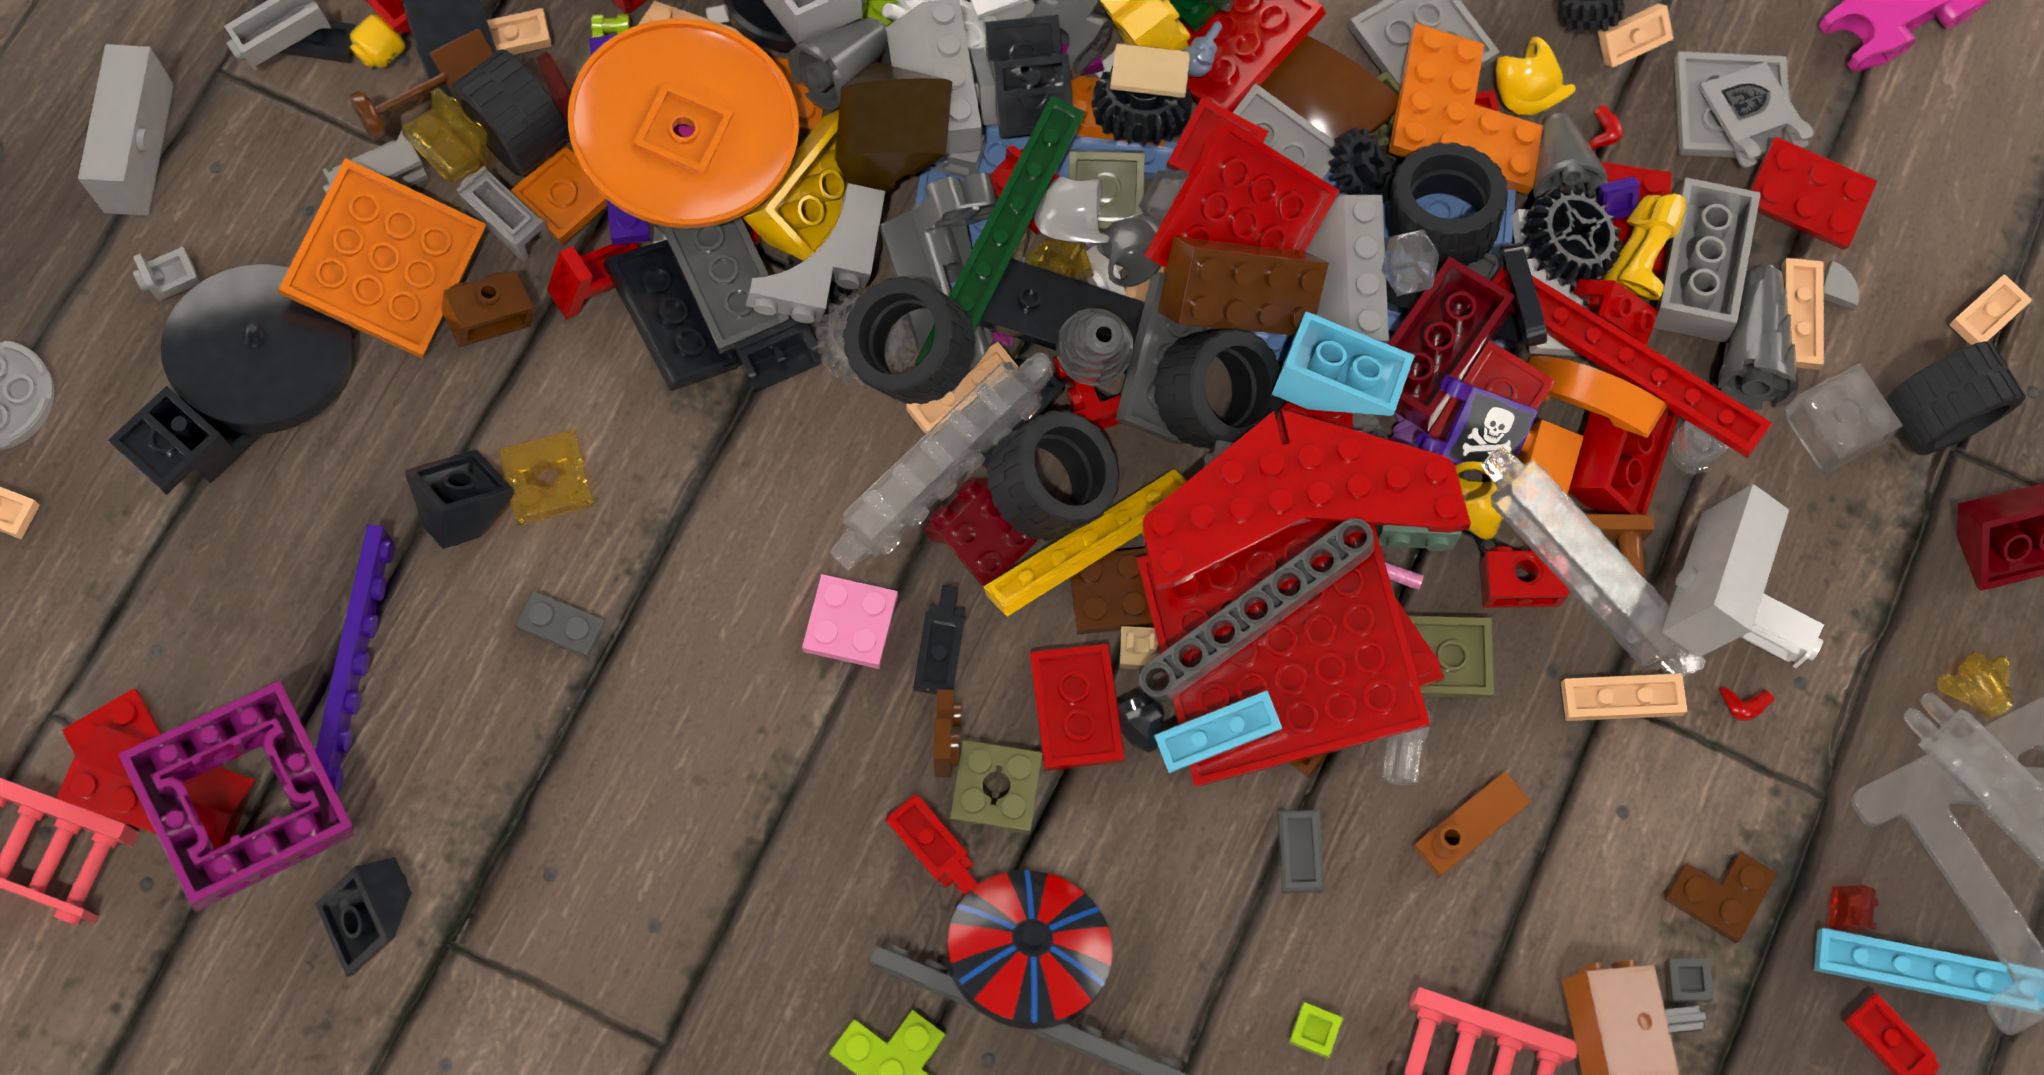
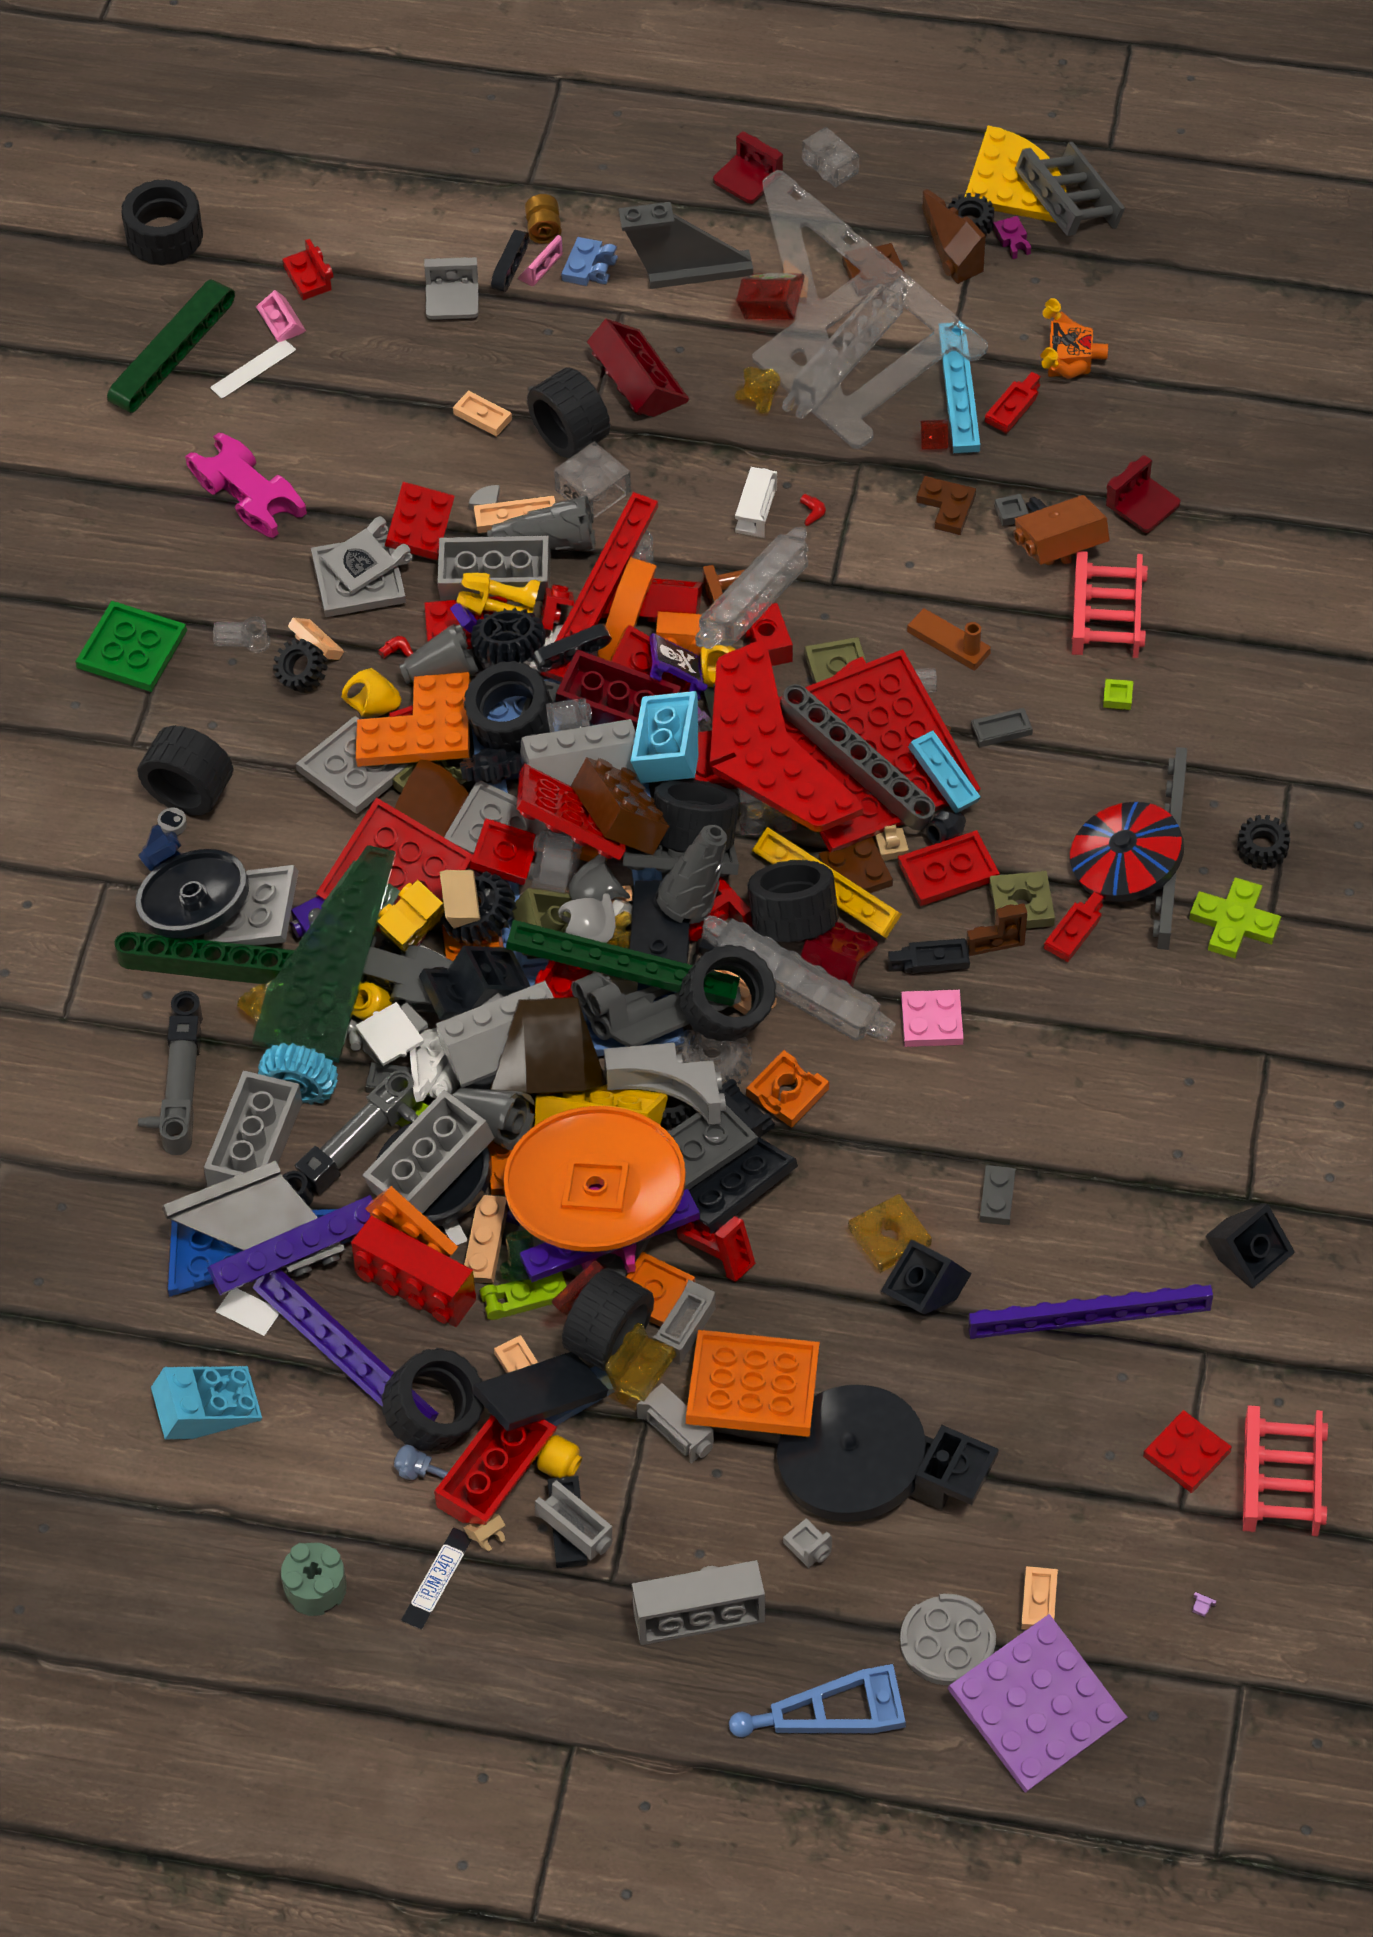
camera: 100 degrees left, 15 degrees down
(103, 786) = (1216, 1395): red slope -> none
(209, 741) = (1261, 1305): magenta brick -> none
(452, 61) = (574, 1374): reddish brown piece -> none
(487, 308) = (770, 1304): reddish brown brick -> none
(783, 436) = (794, 1103): none -> orange brick
(1202, 52) = (427, 876): sand blue piece -> none
(1623, 697) = (833, 571): light nougat plate -> none
(1726, 571) = (736, 514): light grey brick -> none

